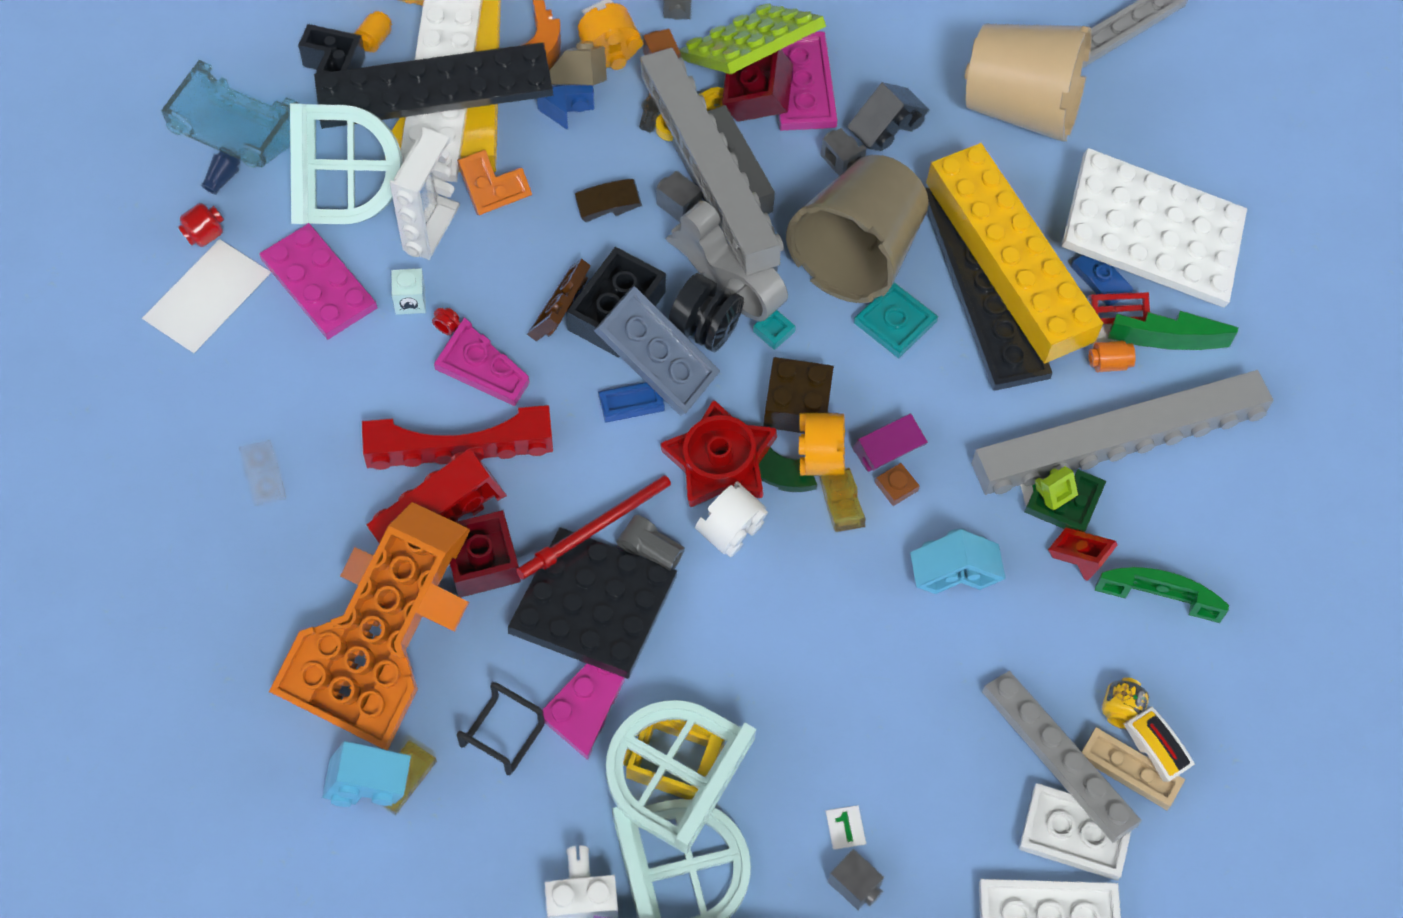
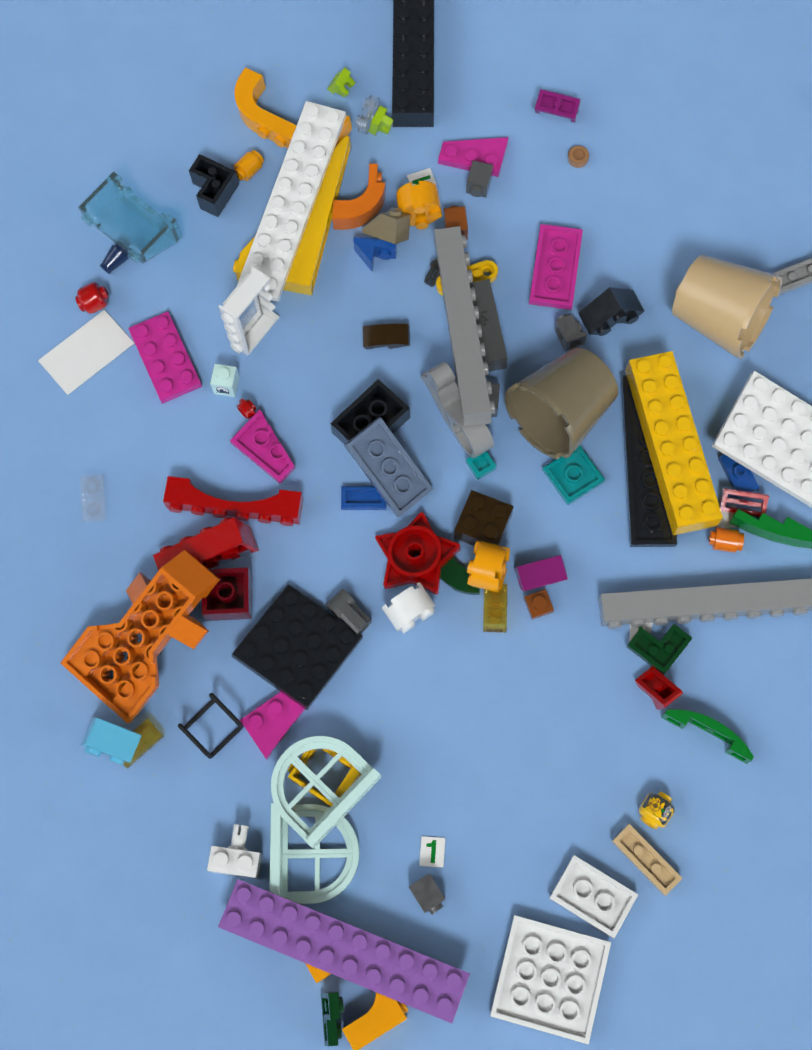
camera: 20 degrees right, 10 degrees up
(305, 164) = (171, 269): light aqua window -> none
(439, 83) = (276, 224): black plate -> none
(490, 191) = (304, 313): orange plate -> none
(548, 556) = (271, 608): red bar -> none
(560, 301) = (331, 410): reddish brown wing -> none
(677, 195) = (437, 344): flat silver brick -> none
(705, 313) = (432, 443): black wheel -> none
(751, 38) = (522, 228): lime plate -> none
(759, 88) = (518, 266): dark red brick -> none
(957, 560) = (564, 677): medium azure brick -> none
(1057, 487) = (653, 637): lime tile -> none
(1061, 757) = (597, 839): light grey plate -> none
(1160, 743) = (670, 848): slope -> none

